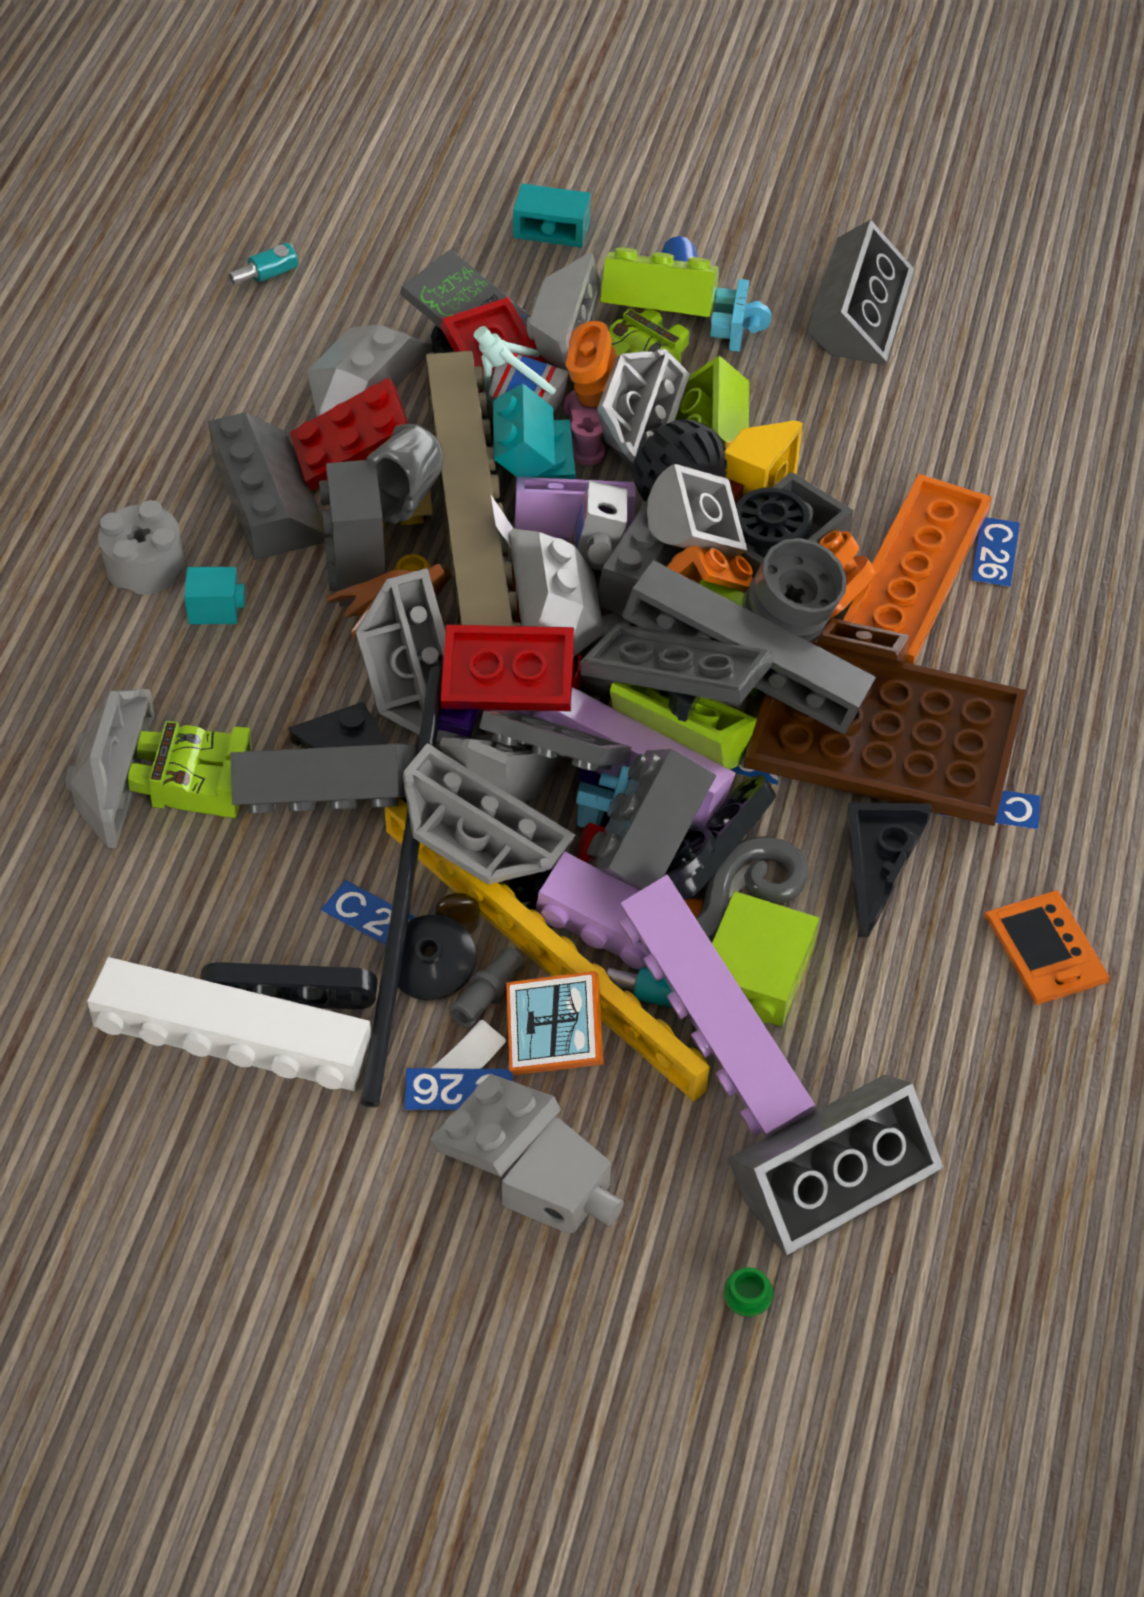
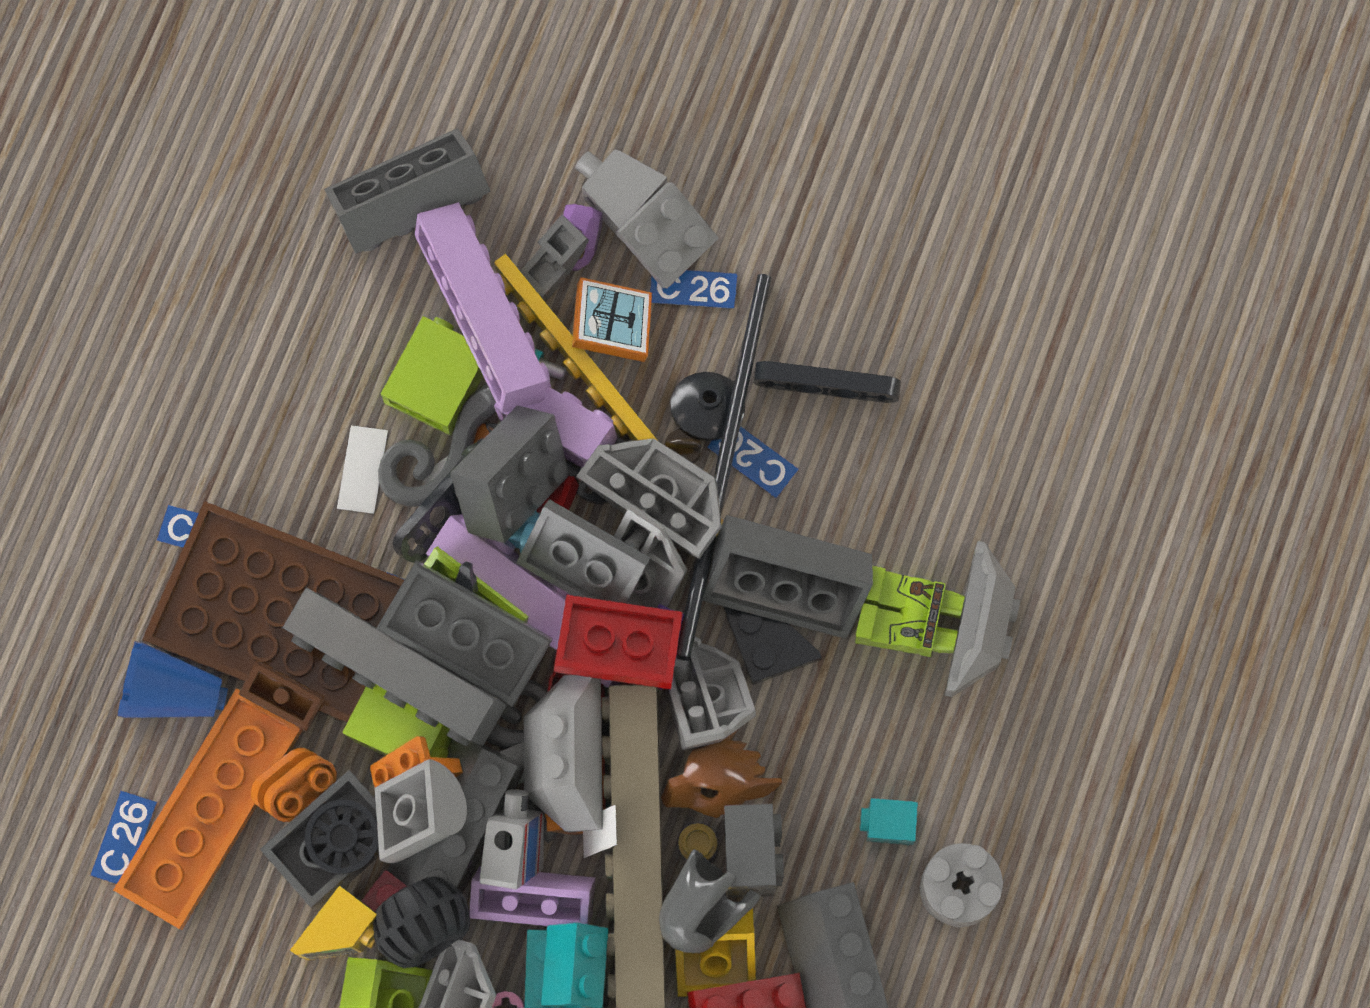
camera: 170 degrees left, 25 degrees up
(230, 1024) = (874, 347): white brick -> none
(474, 1048) = (681, 319): white sticker -> none
(487, 987) = (663, 370): dark grey pin -> none
(610, 1125) = (589, 223): none -> medium lavender rock
(636, 1085) = (556, 258): none -> dark grey slope
(748, 1292) = (491, 97): green plate -> none
(797, 587) = (327, 706): dark grey wheel -> none
(827, 876) = (360, 469): none -> white sticker
(880, 847) = (311, 488): black wing -> none
(986, 647) = (168, 687): none -> blue cone
(1047, 947) = (192, 382): orange container -> none

